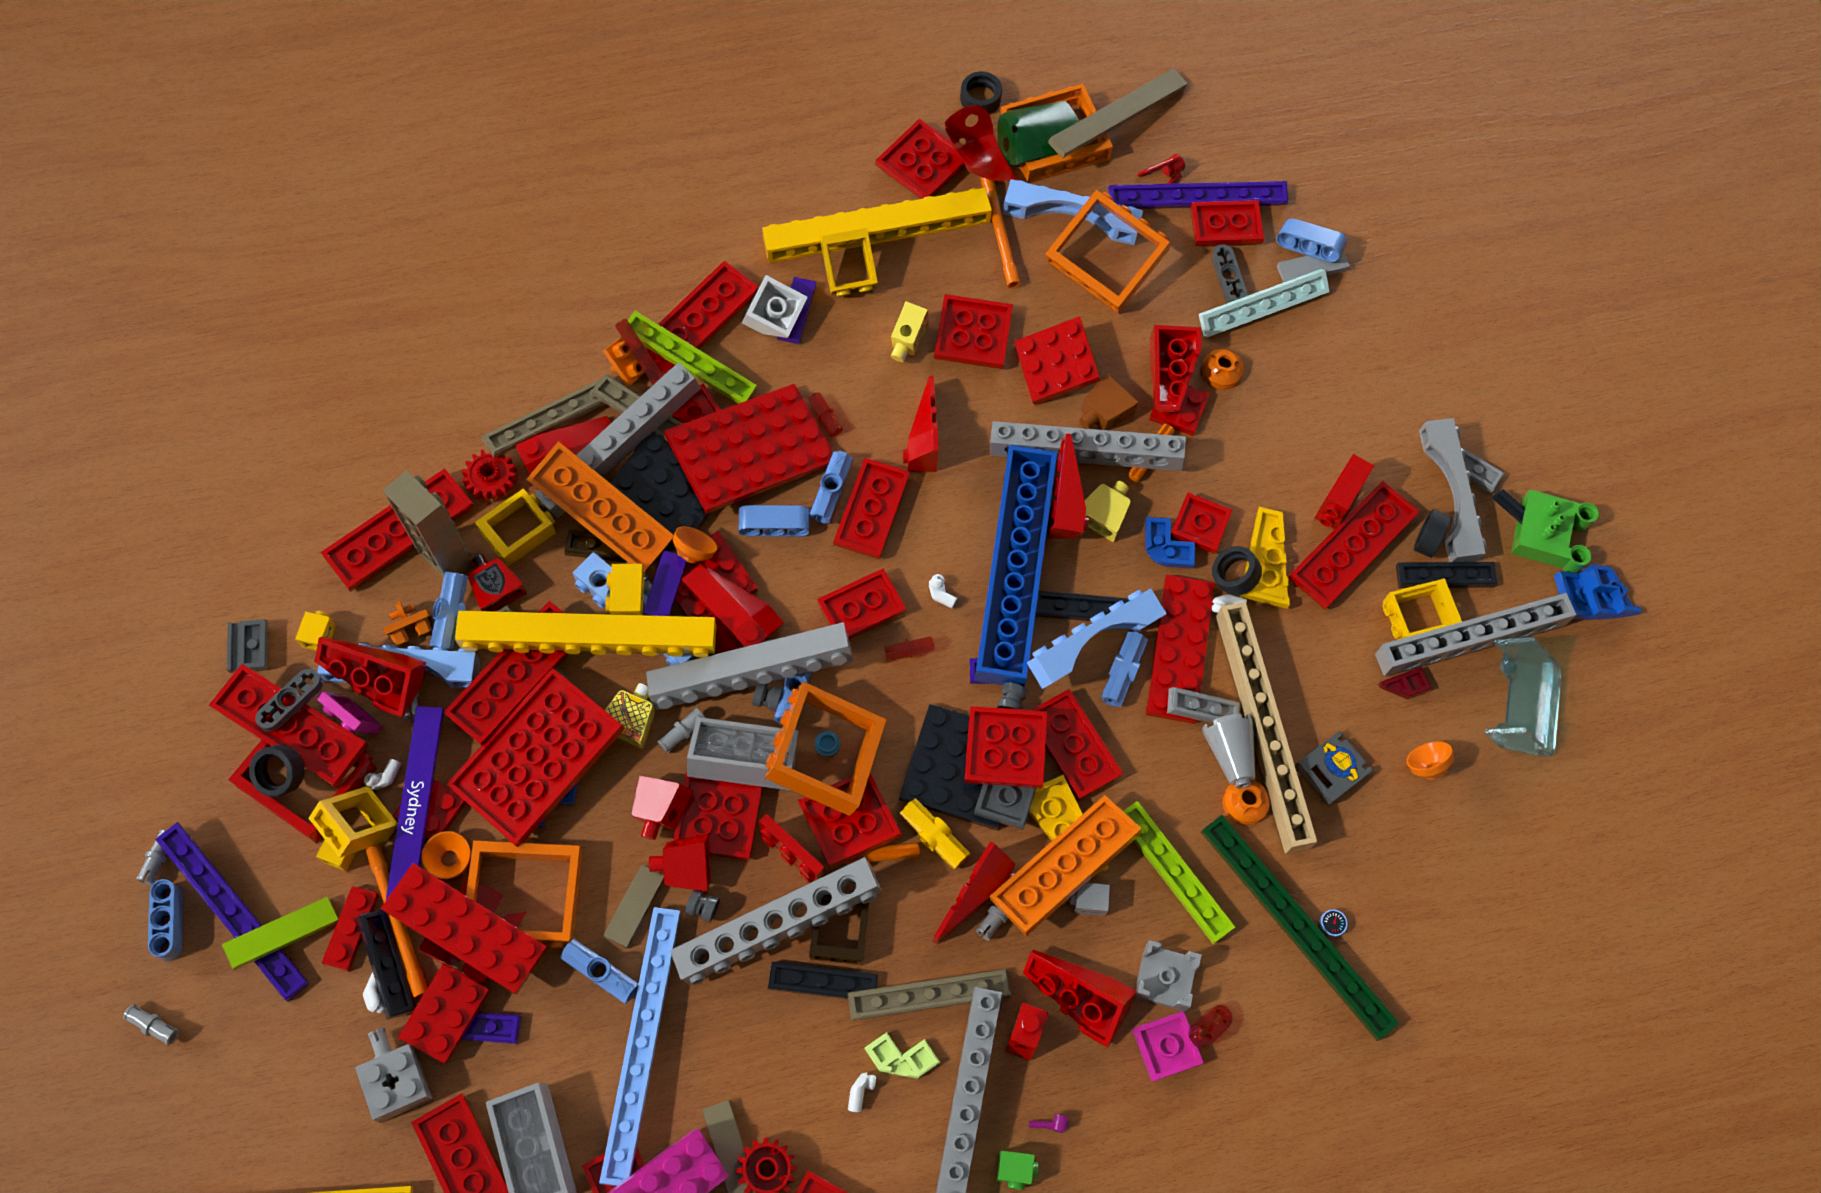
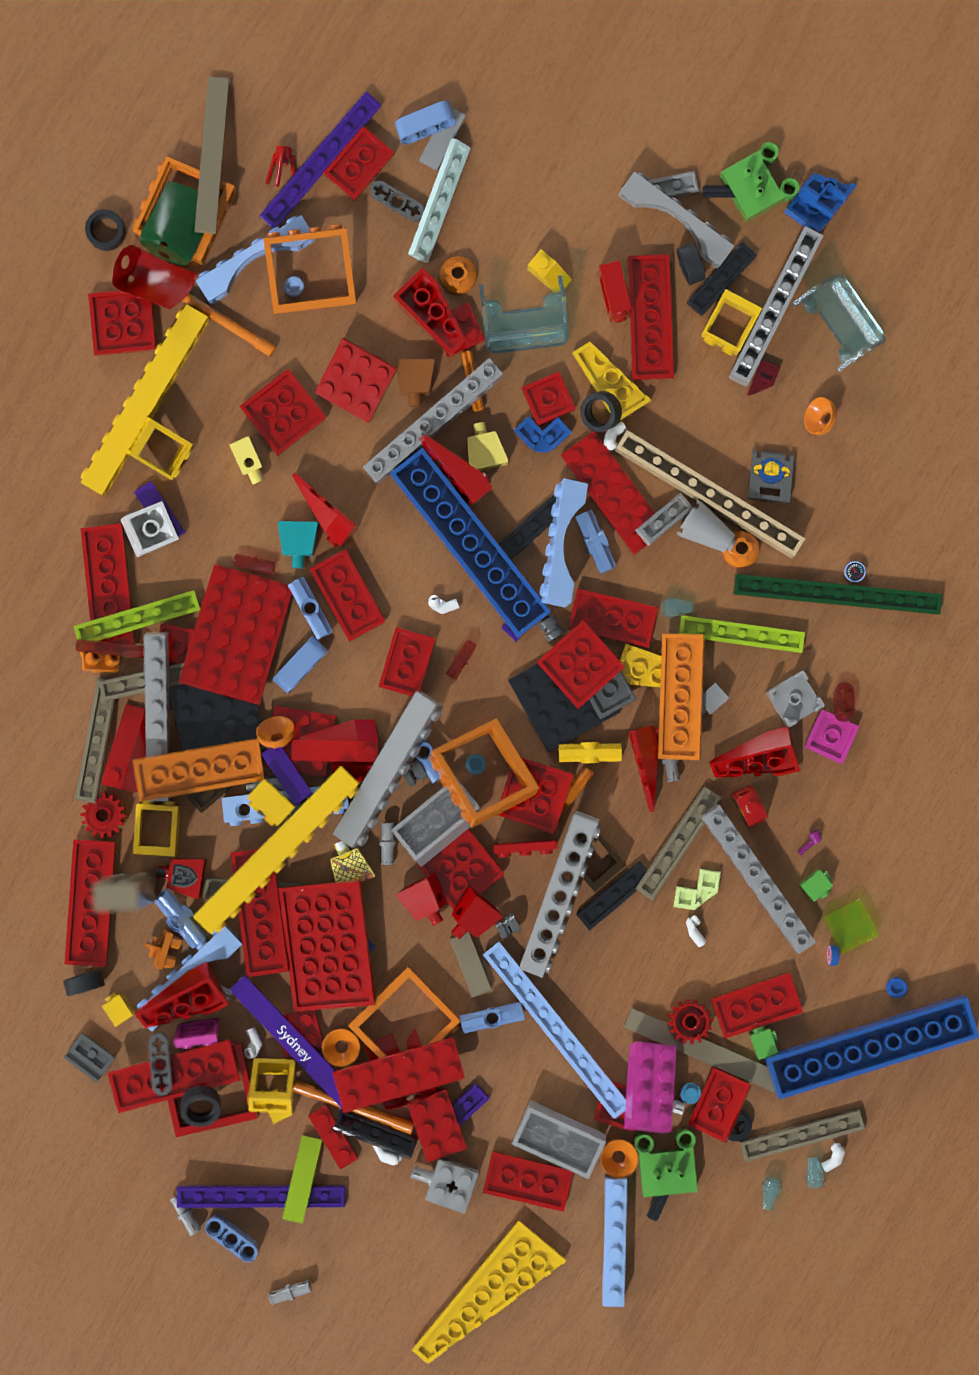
camera: 40 degrees left, 20 degrees up
(315, 580) = (84, 982): none -> black tyre
(880, 429) = (298, 540): none -> teal torso
(1081, 257) = (294, 286): none -> light blue tile
(1139, 791) = (675, 607): none -> clear light blue cone
(1234, 454) = (526, 327): none -> clear light blue windscreen
(1301, 431) = (547, 271): none -> yellow slope

